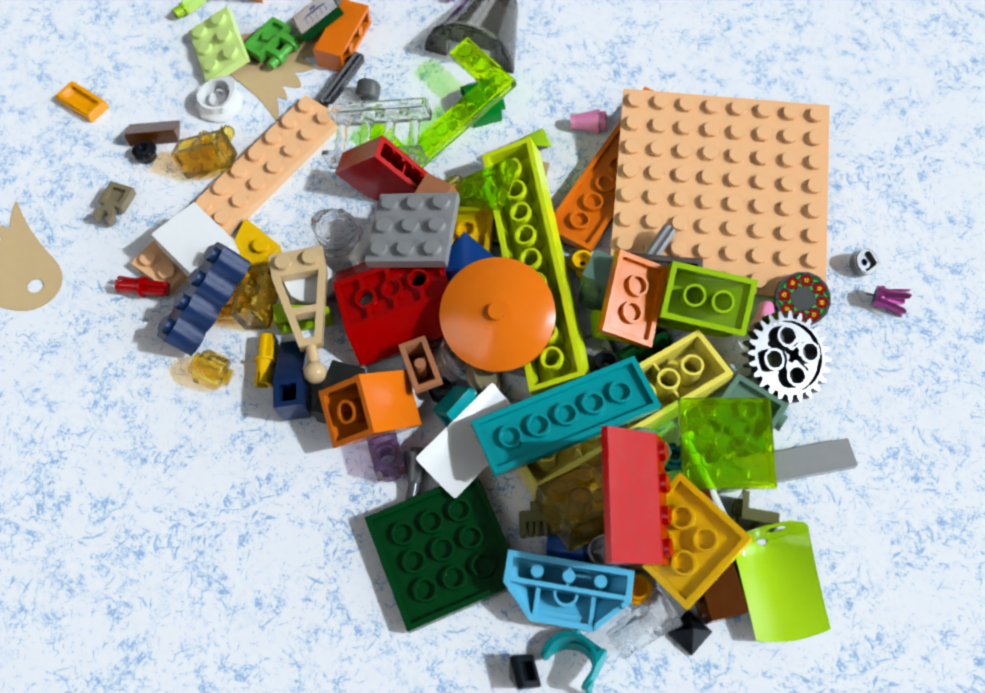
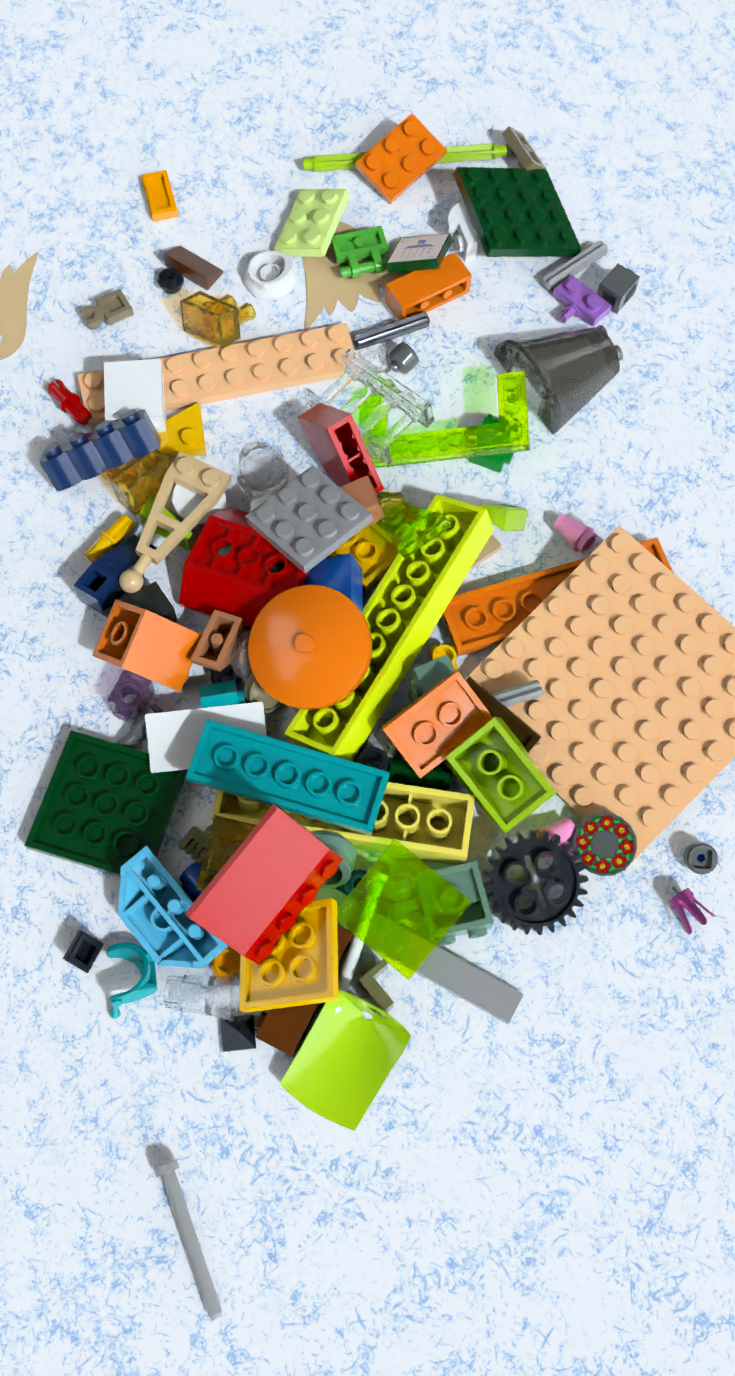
camera: 35 degrees right, 5 degrees up
(210, 369) = (61, 515): clear yellow head -> none

